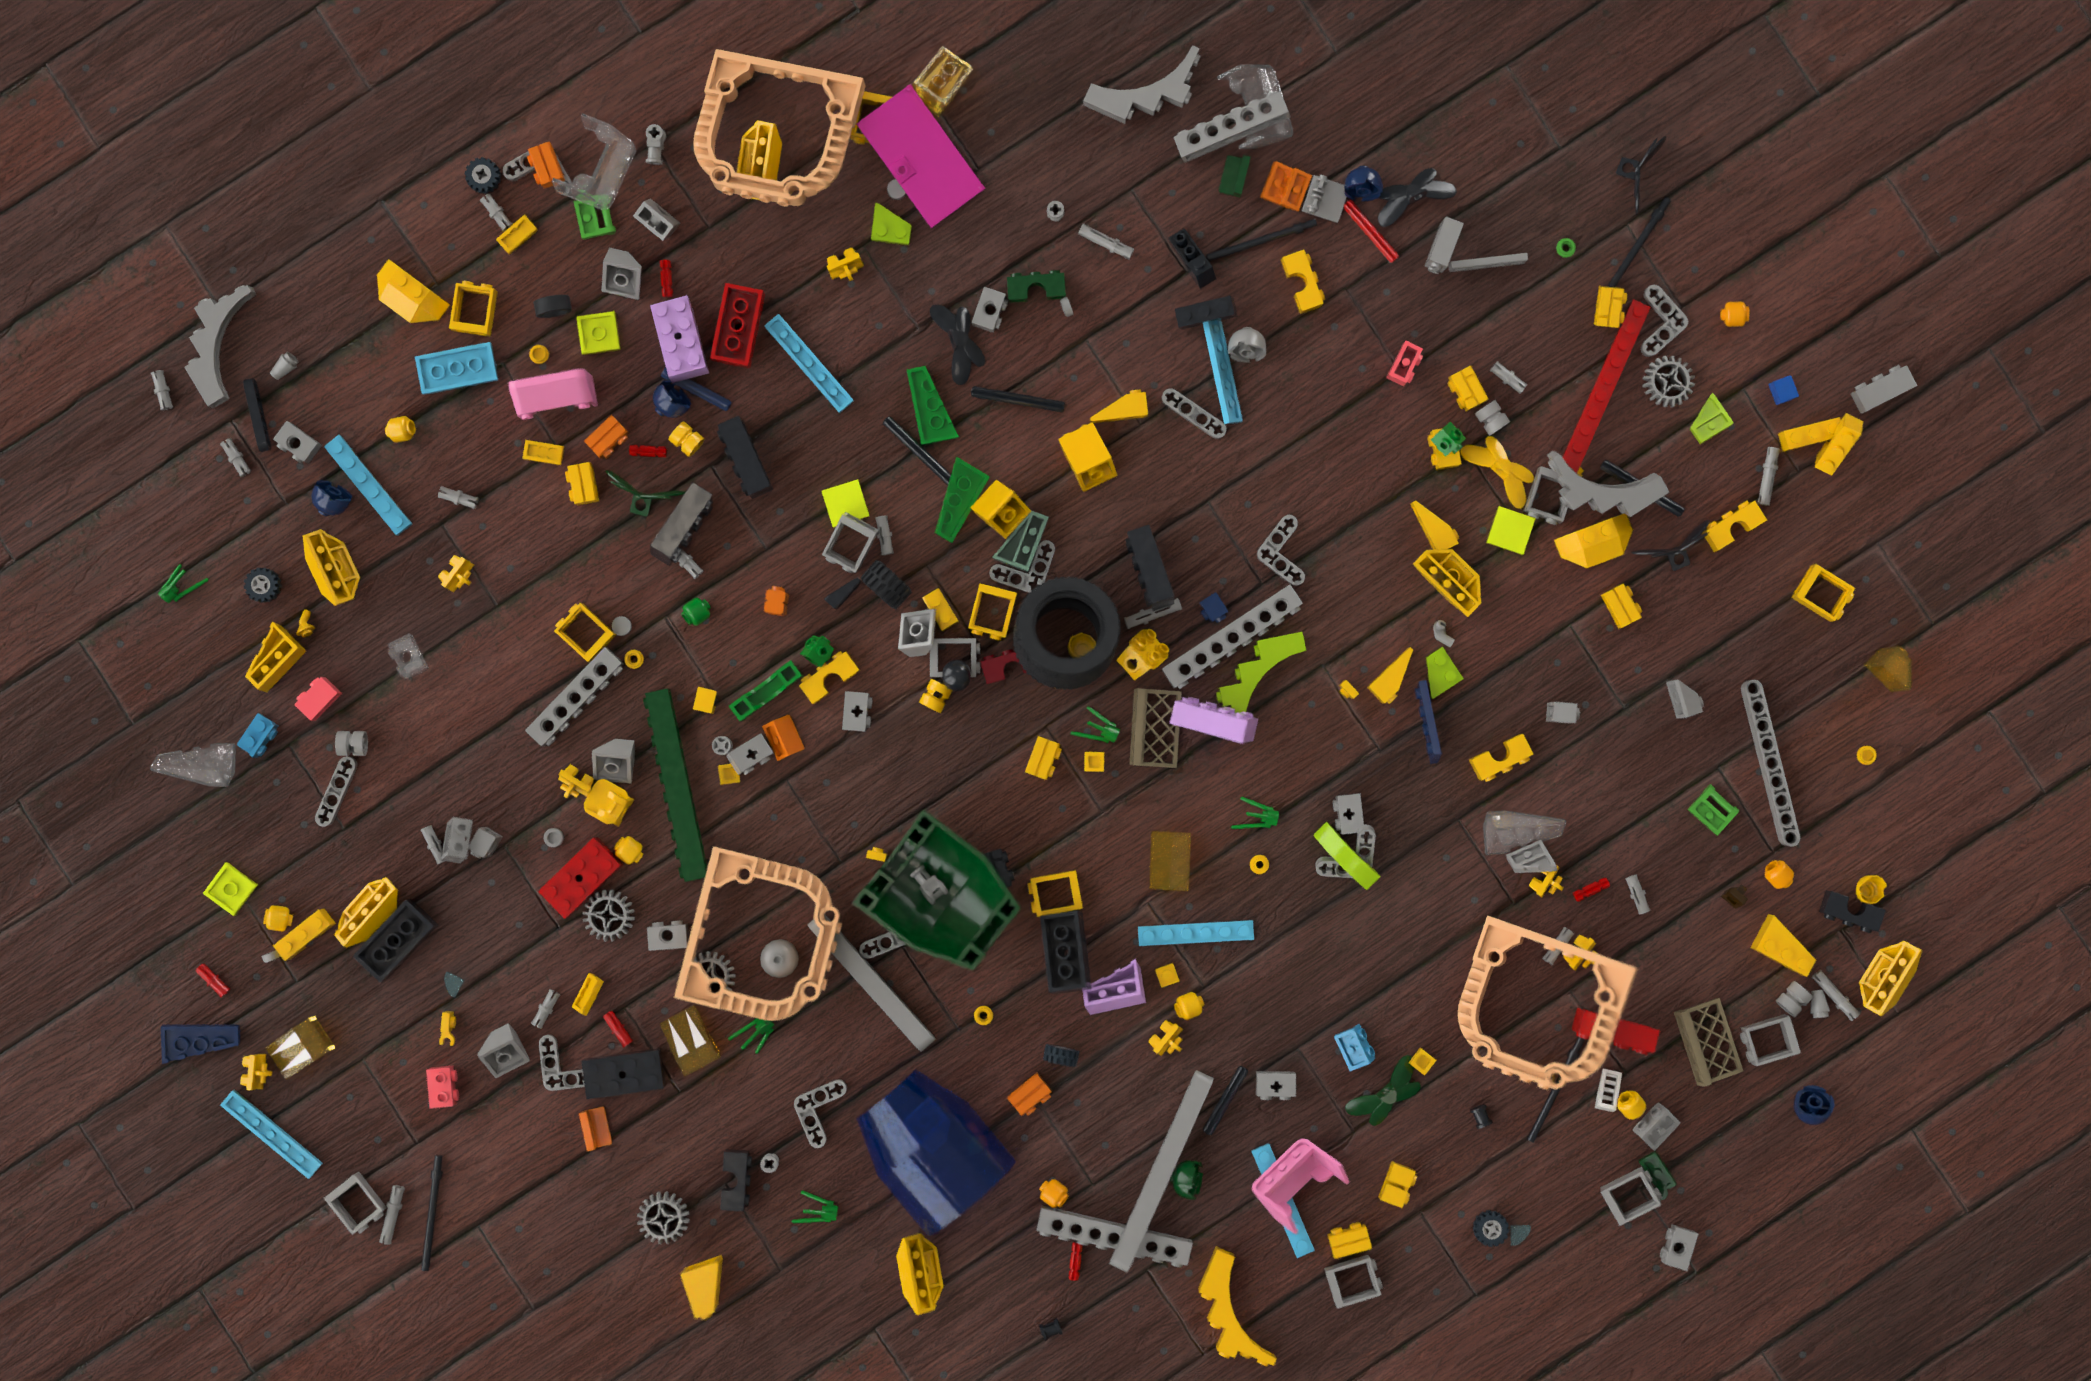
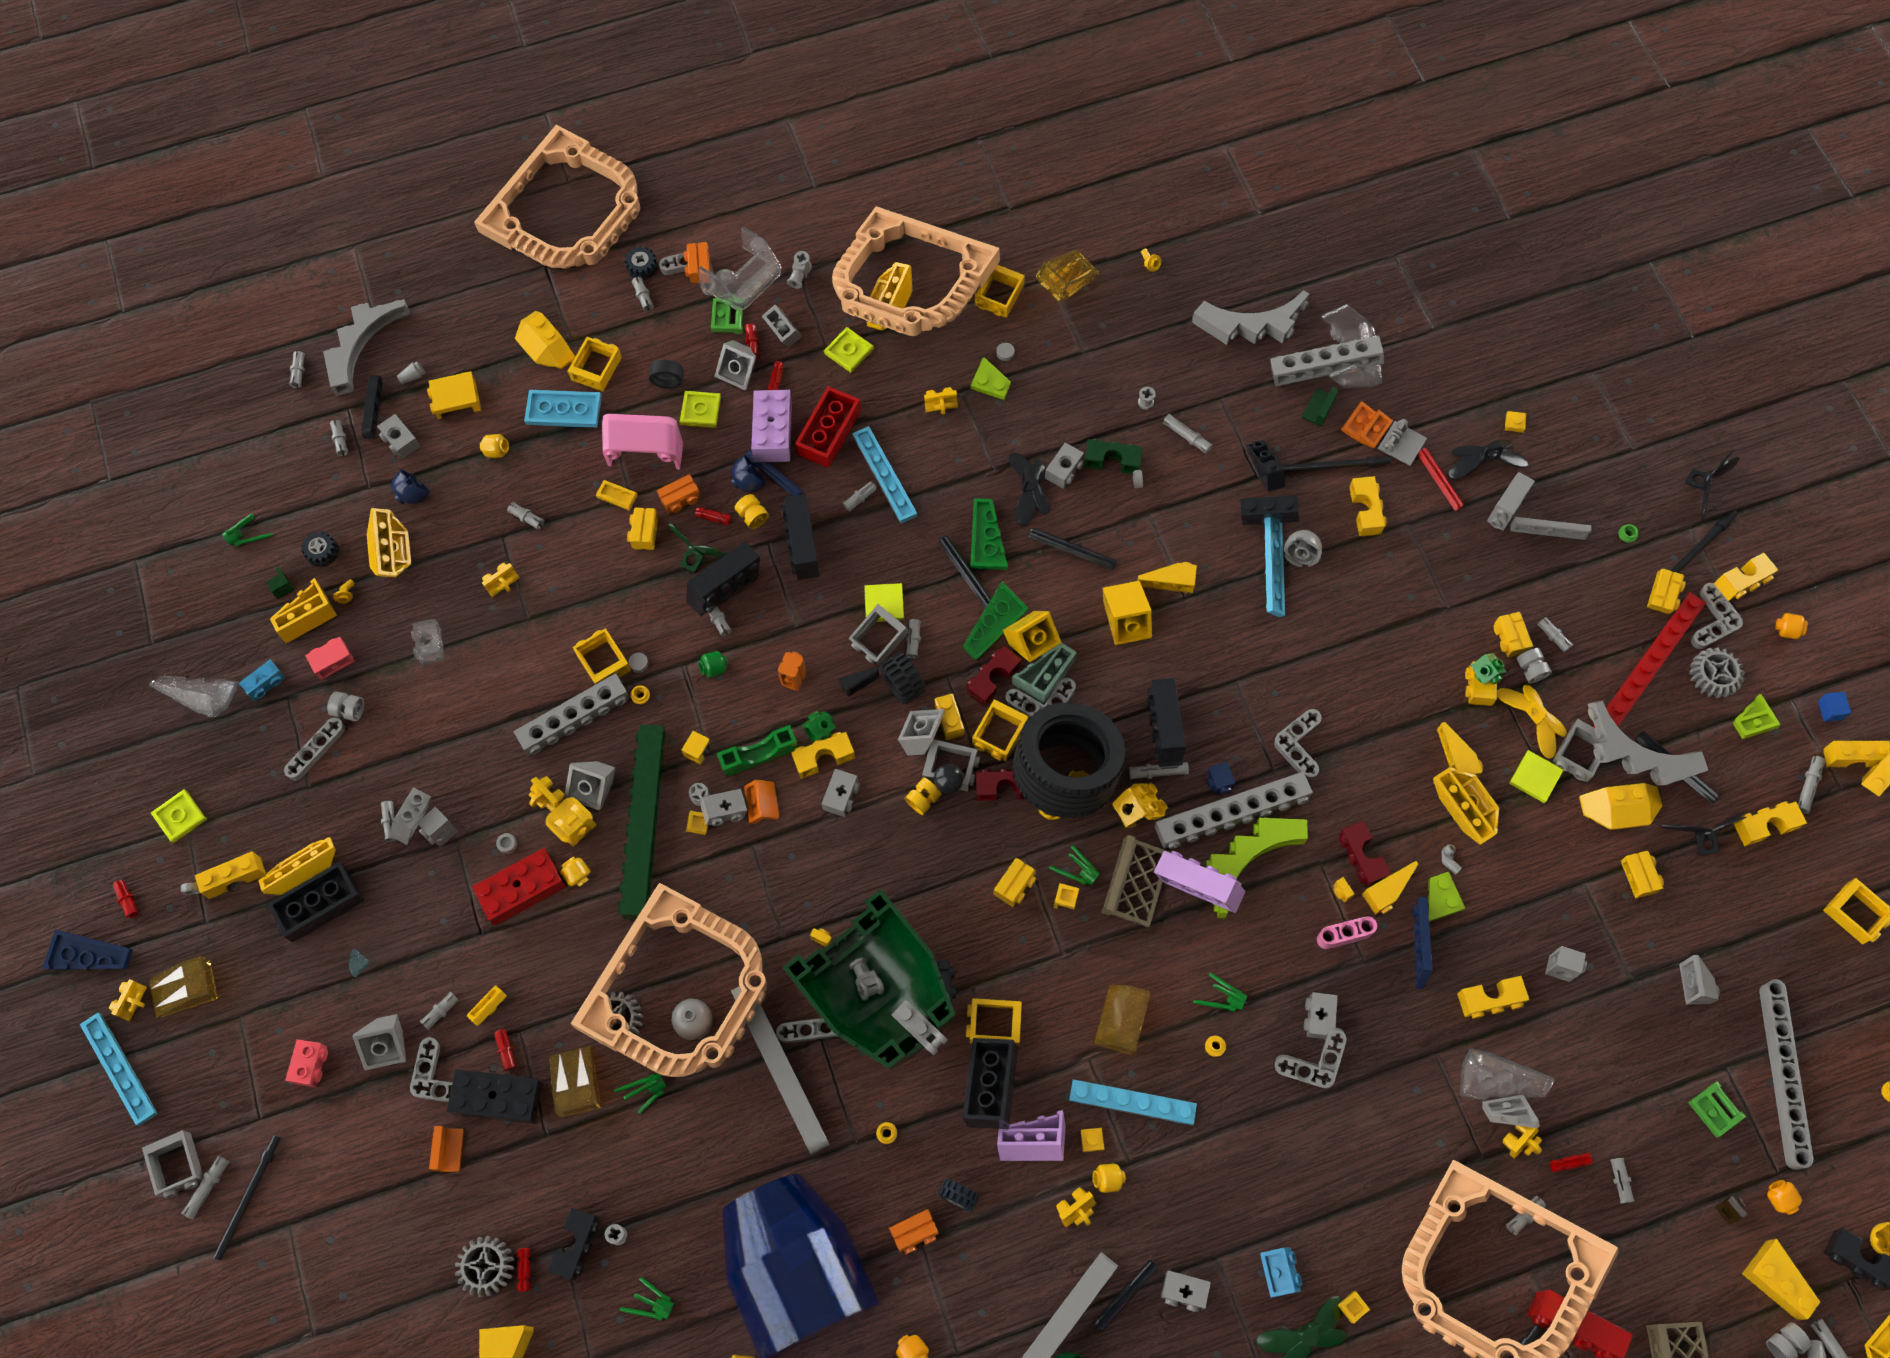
camera: 20 degrees right, 20 degrees down
(236, 632) = (279, 584): none -> dark green panel
(277, 918) = (211, 853): yellow head -> none
(338, 381) = (453, 394): none -> yellow panel
(345, 54) = (562, 147): none -> light nougat arch
(368, 485) = (448, 488): medium azure plate -> none
(447, 1023) = (334, 1002): yellow plate -> none
(517, 234) = (654, 314): yellow plate -> none
(539, 354) = (641, 410): yellow plate -> none
(606, 923) = (531, 939): light grey gear -> none
(629, 240) = (752, 340): none -> red pin
(656, 938) = (574, 965): light grey brick -> none
(697, 1211) = (523, 1269): none -> red axle
(733, 226) = (848, 349): none -> neon yellow tile
(789, 394) = (859, 496): none -> light grey axle
(810, 1109) = (676, 1189): light grey beam -> none
(920, 156) = (1034, 326): dark pink door -> none
(977, 540) = (1003, 663): none -> dark red arch
(990, 923) = (919, 1026): none -> light grey plate
(1025, 44) = (1151, 262): none -> yellow plate
(1195, 411) = (1240, 597): light grey beam -> none
(1346, 856) = (1311, 1058): lime slope -> none
(1363, 183) = (1441, 436): dark blue cylinder -> none
(1368, 728) = (1353, 926): none -> bright pink beam
(1369, 664) = (1368, 870): none -> dark red arch
(1404, 363) = (1454, 596): coral brick -> none
(1436, 145) = (1515, 421): none -> yellow plate
(1584, 943) = (1544, 1235): yellow hips -> none
(1696, 261) = (1756, 571): none -> yellow arch

